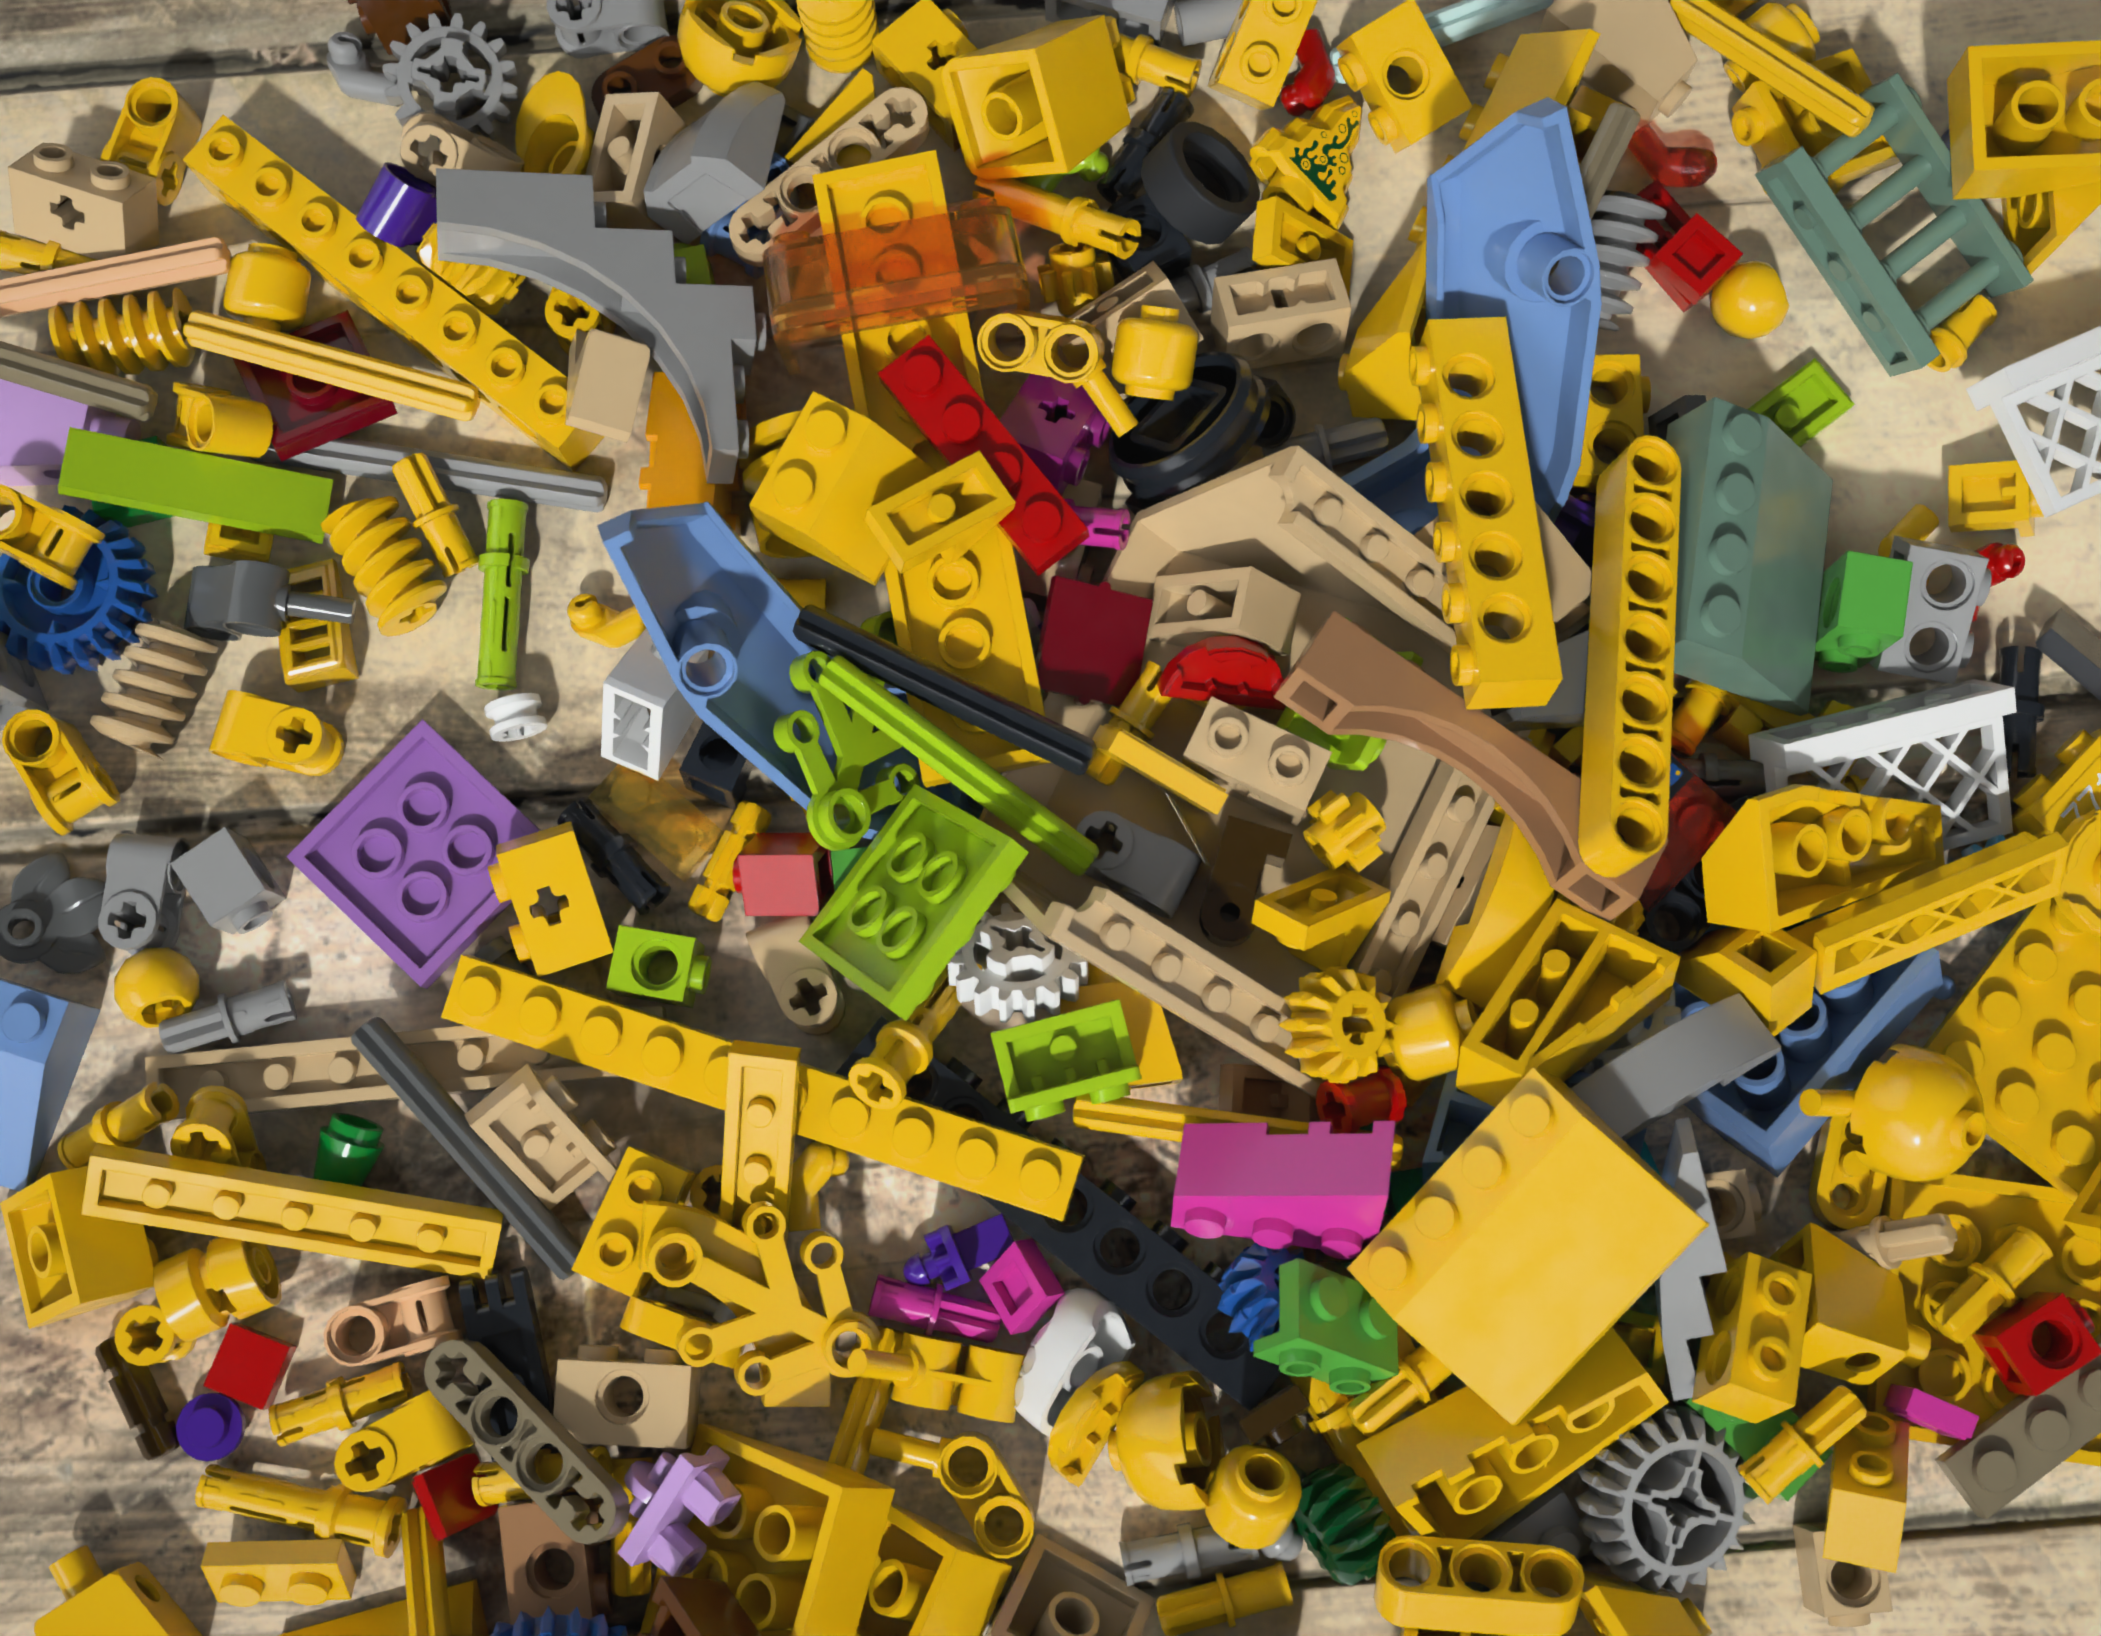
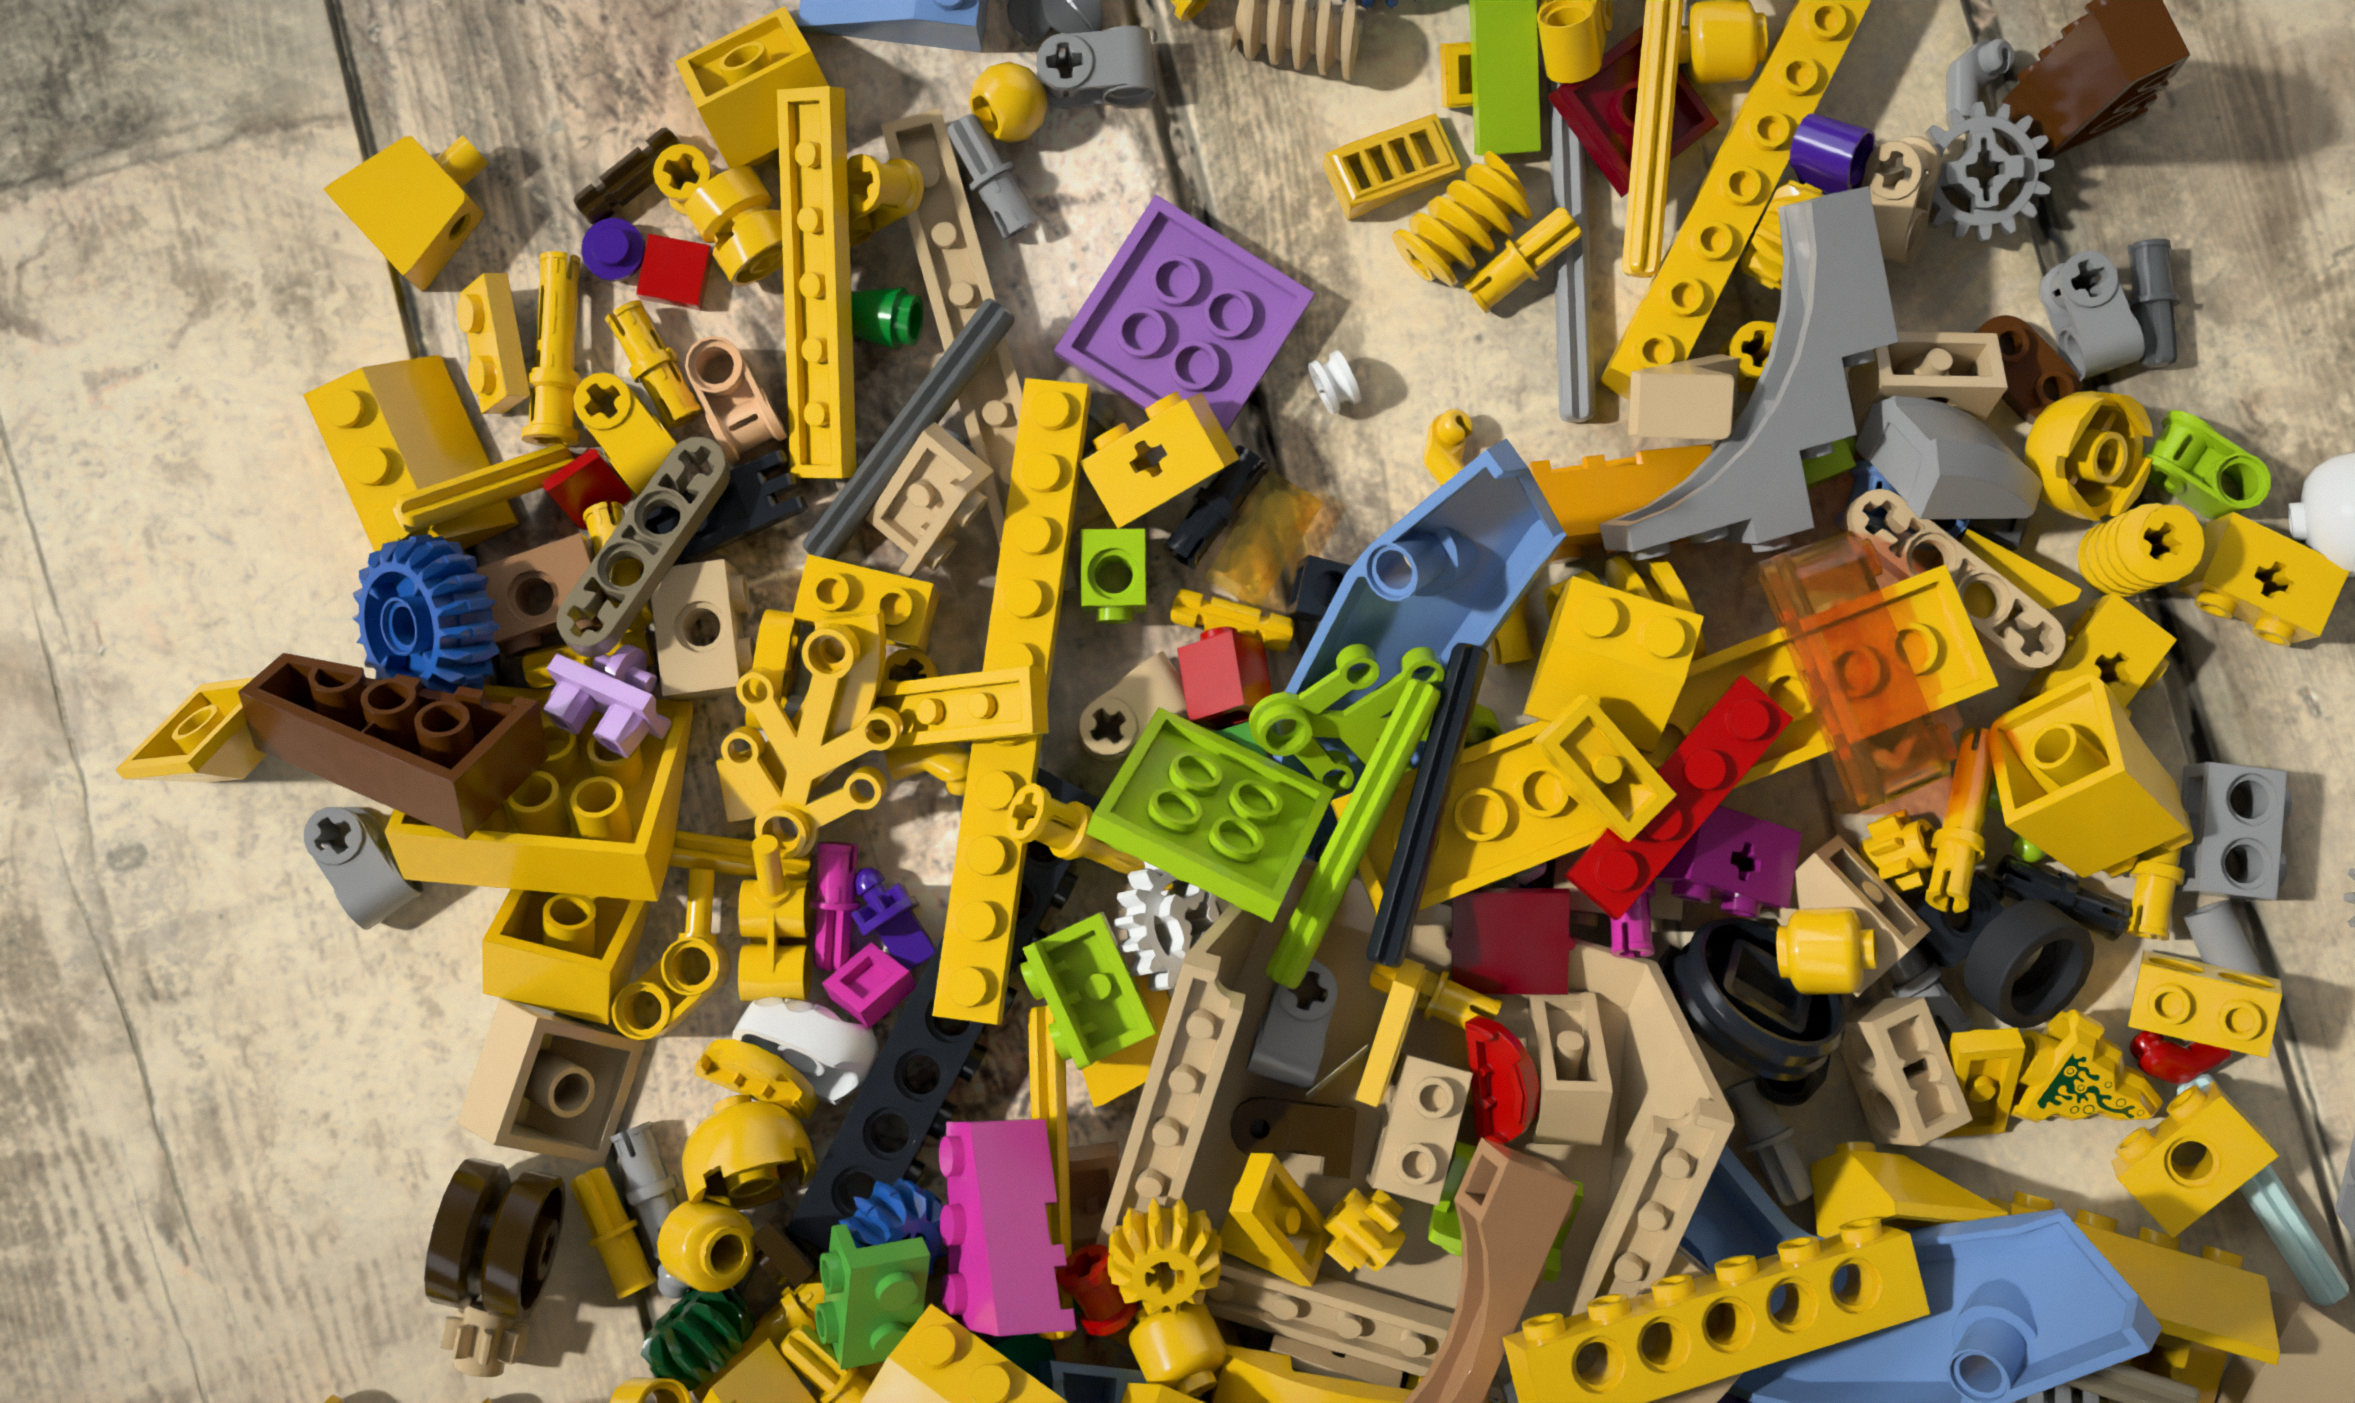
camera: 75 degrees right, 5 degrees up
(120, 1124) = (870, 99): yellow pin -> none
(229, 882) = (1121, 146): light grey brick -> none
(253, 601) = (1399, 104): dark grey beam -> none
(270, 735) = (1274, 150): yellow piece -> none
(501, 599) = (1457, 341): lime pin -> none
(554, 127) = (1946, 288): yellow piece -> none
(628, 731) = (1356, 506): white torso -> none
(1042, 358) = (1797, 835): yellow beam -> none

